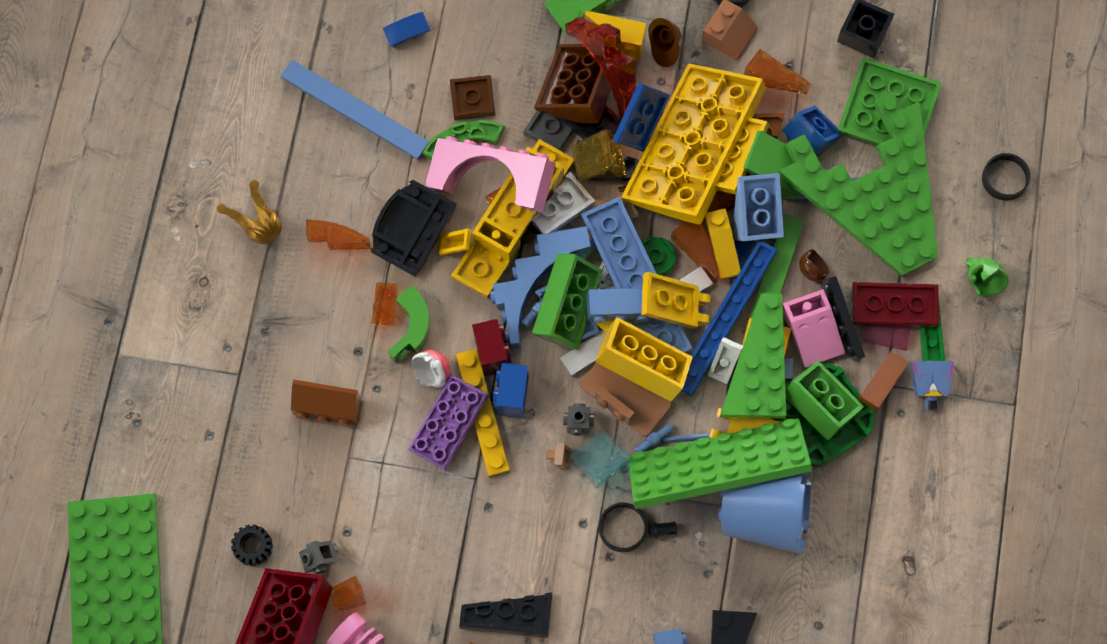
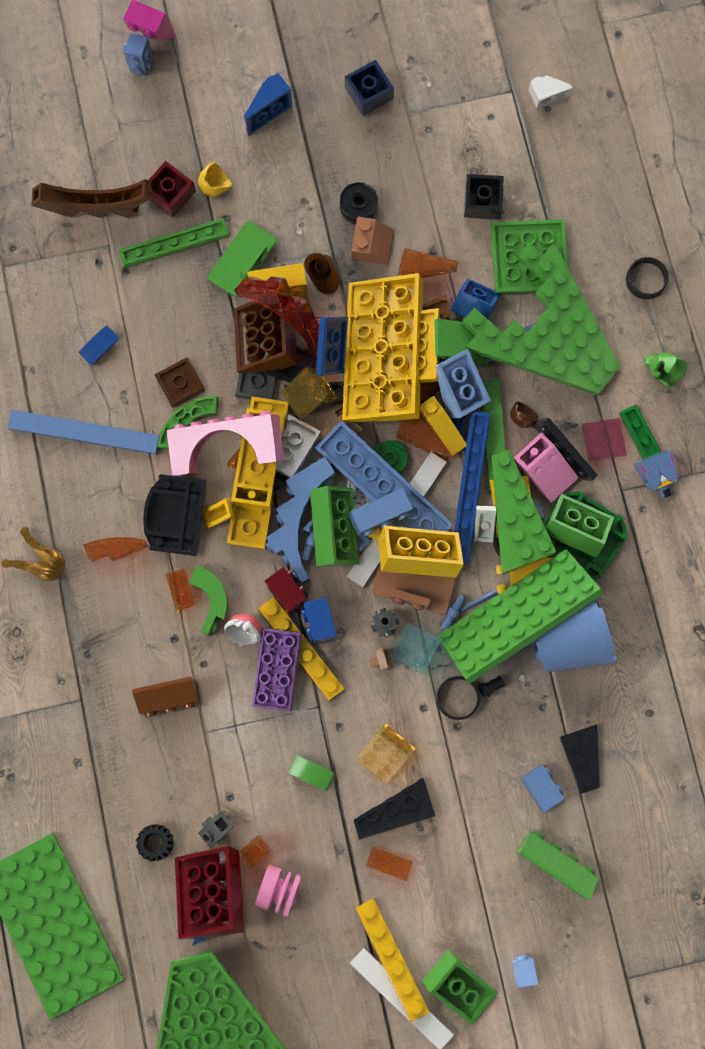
camera: 25 degrees left, 5 degrees up
(439, 540) = (311, 773): none -> bright green slope
(523, 552) = (385, 753): none -> clear yellow bracket
(673, 301) = (422, 492): yellow tile -> none
(883, 381) = (619, 489): dark orange tile -> none
(895, 304) = (603, 420): dark red tile -> none

